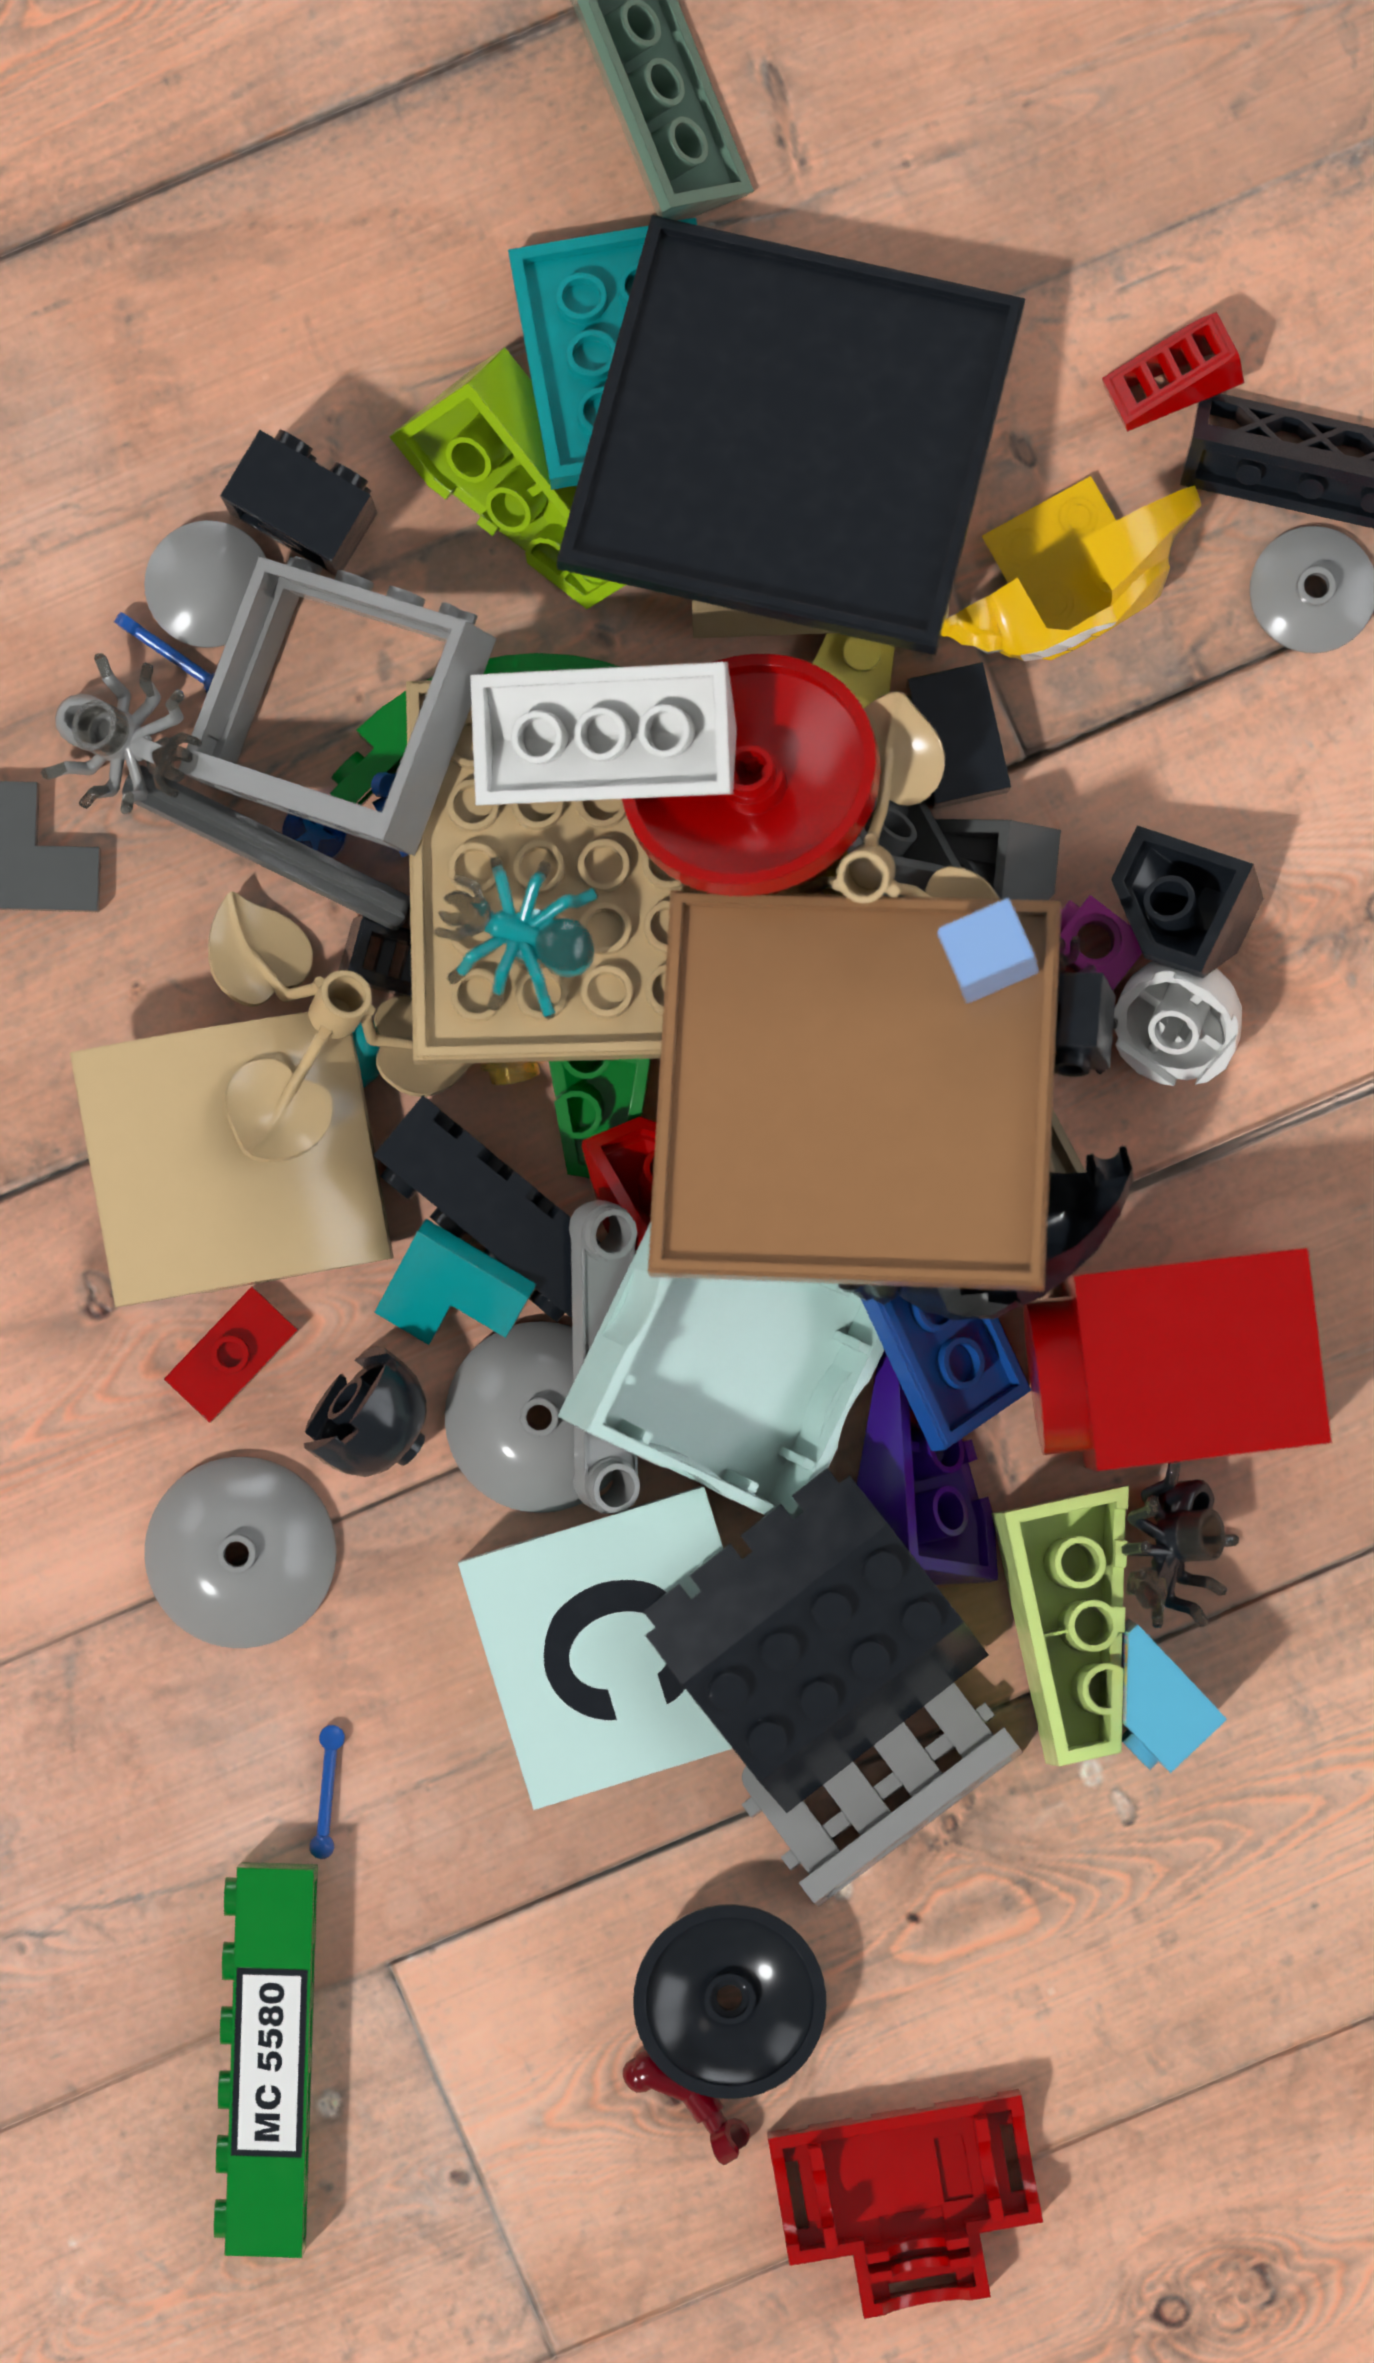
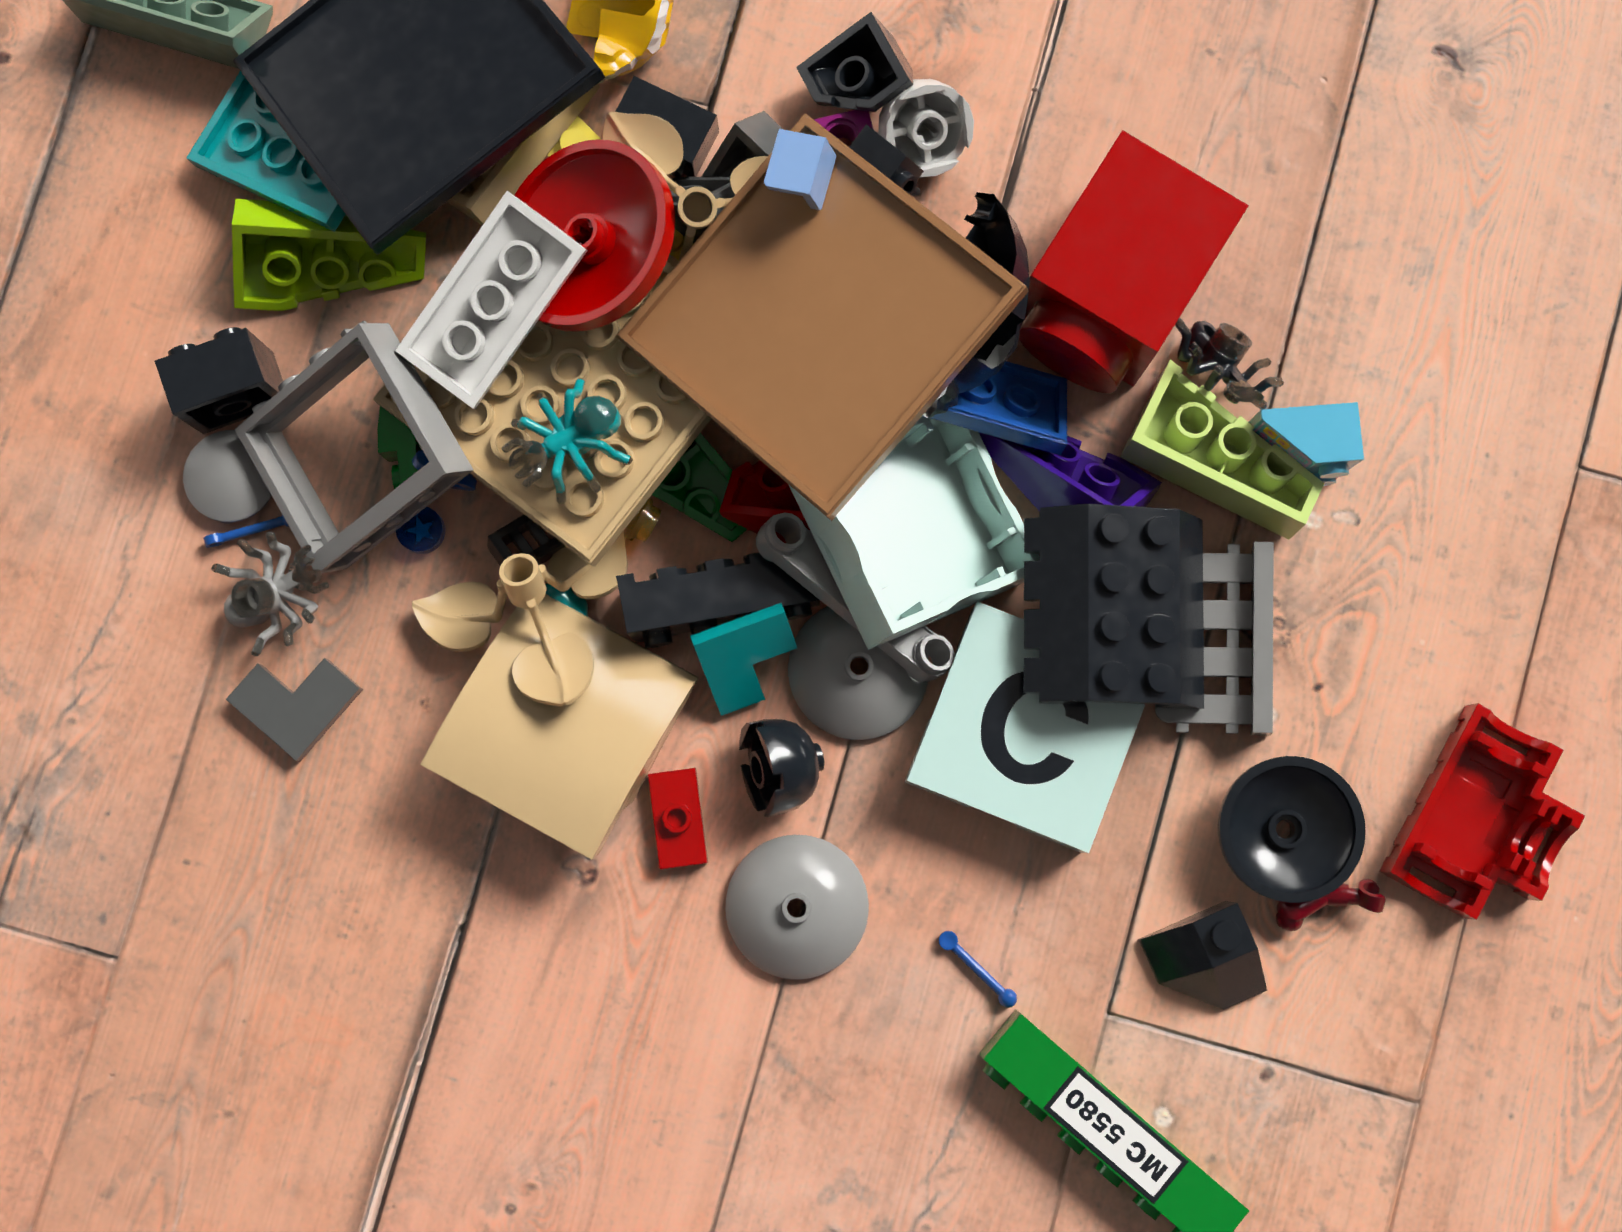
camera: 50 degrees left, 5 degrees down
(276, 852) = (411, 557): dark grey axle -> none
(528, 2019) = (1208, 956): none -> black slope

